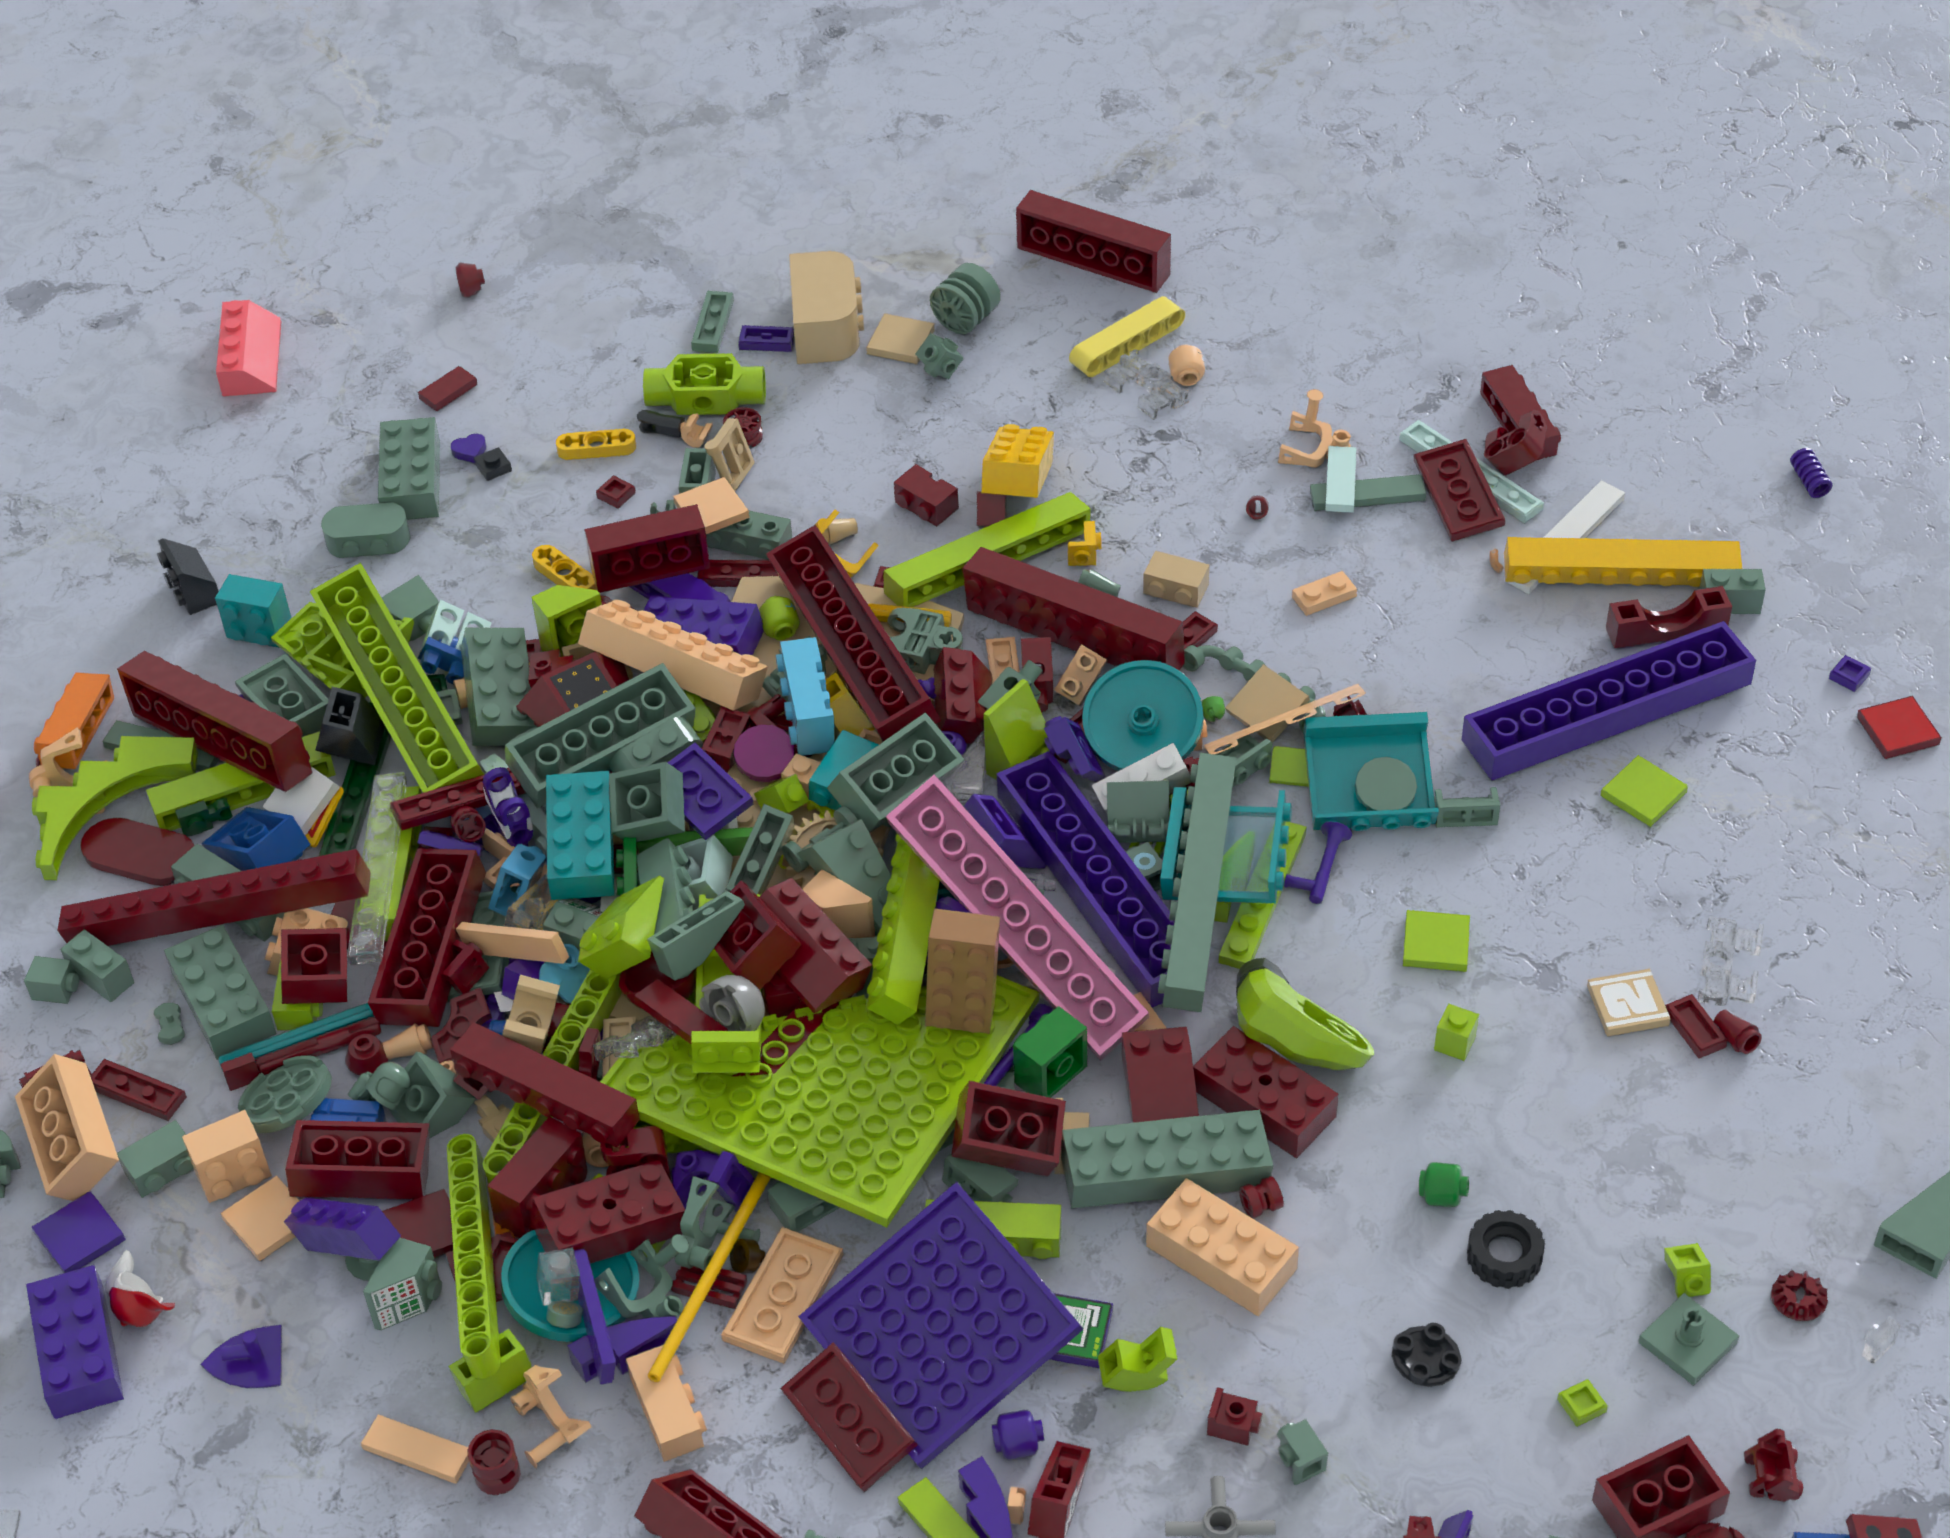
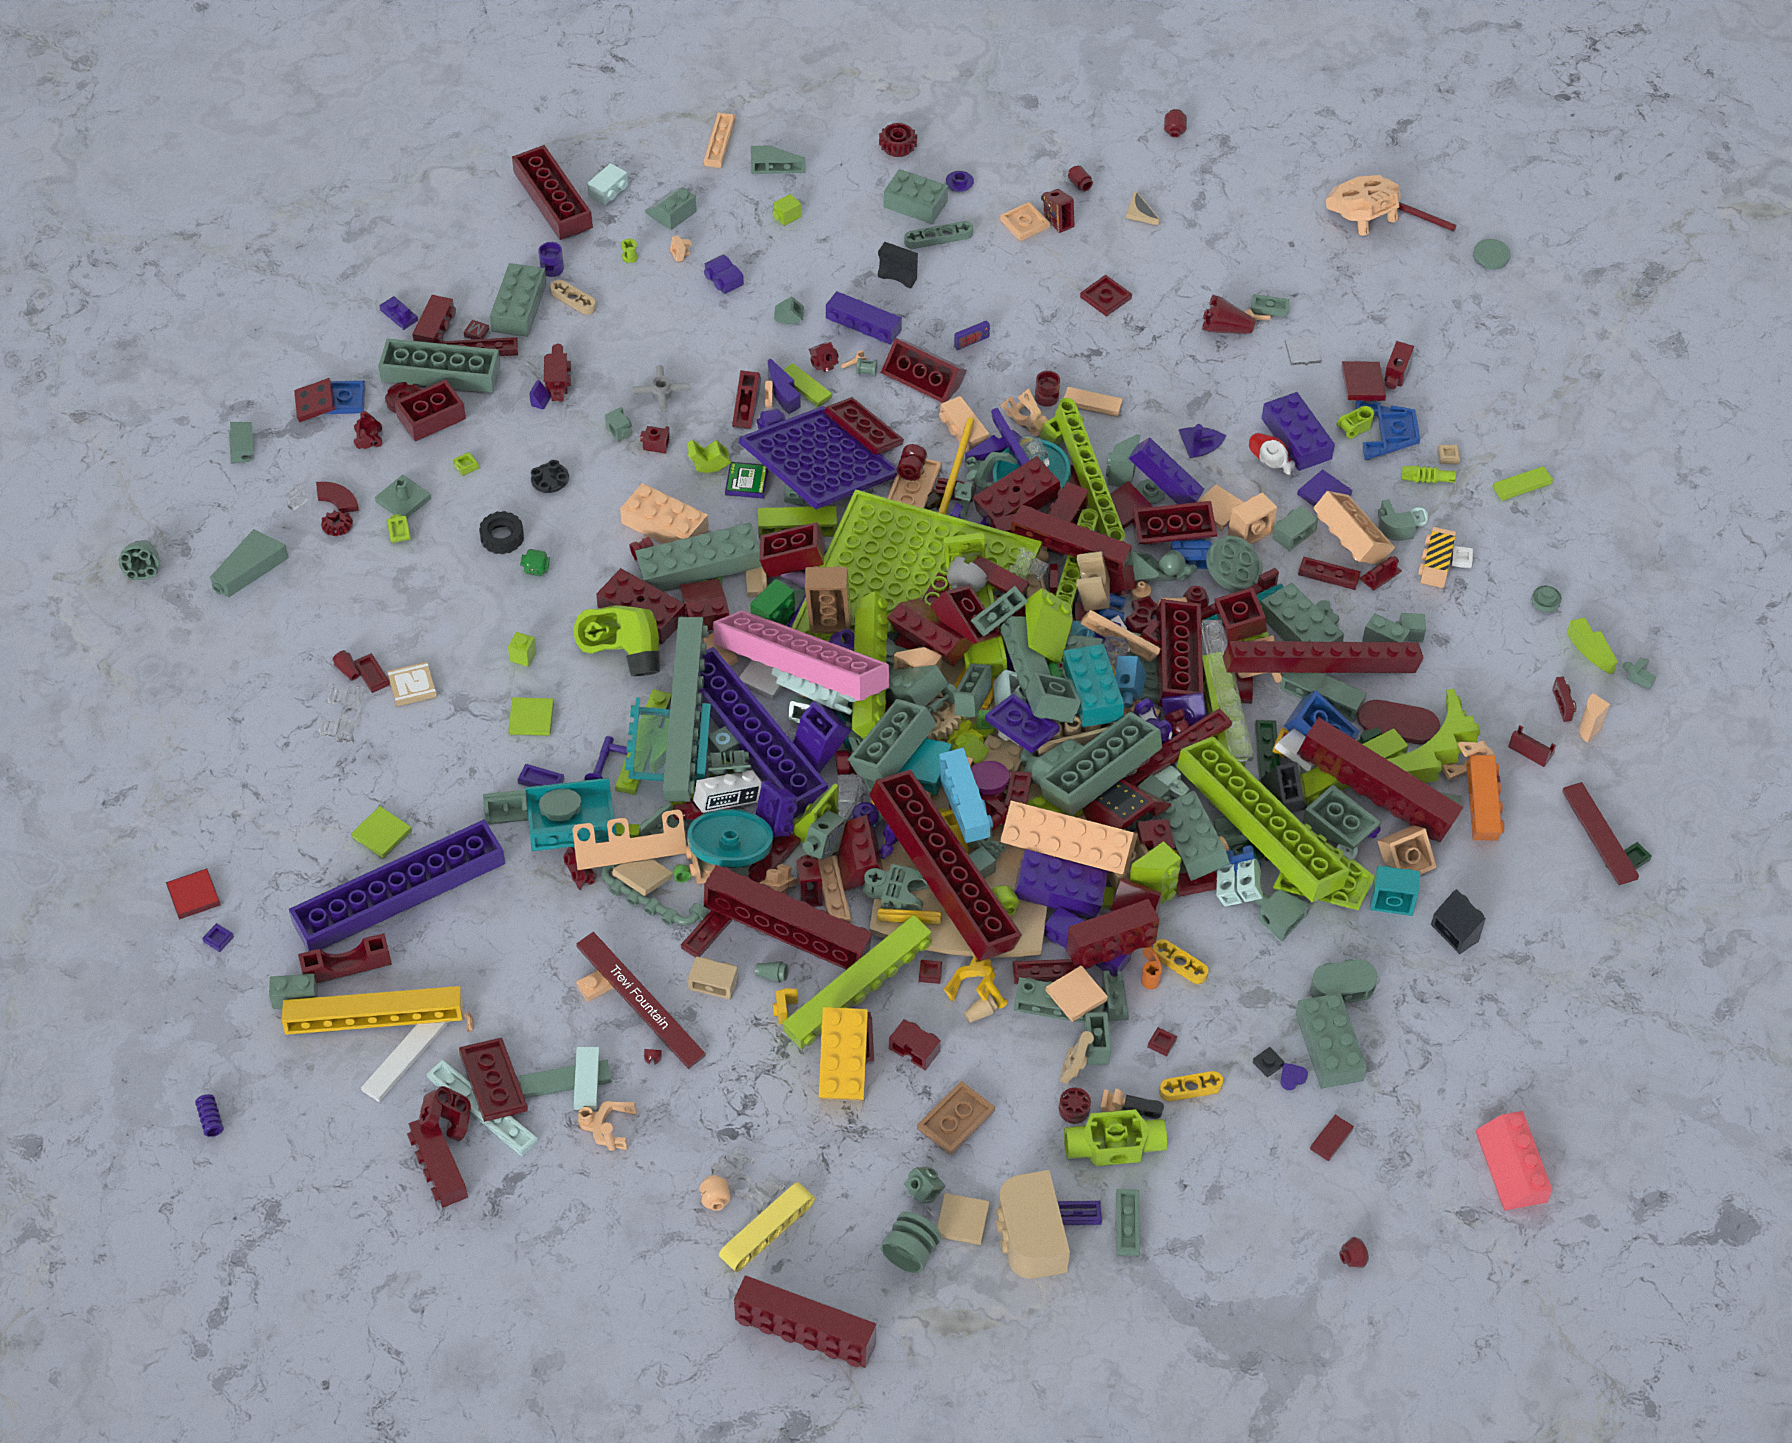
camera: 170 degrees right, 5 degrees up
(218, 668) = (1408, 850): none -> light nougat slope
(776, 1308) = (911, 462): none -> dark red wheel
(889, 424) = (956, 1118): none -> medium nougat plate
(1274, 558) = (641, 1000): none -> dark red tile
(1416, 850) = (536, 776): none -> dark purple tile
(1801, 1346) = (337, 495): none -> dark red tile

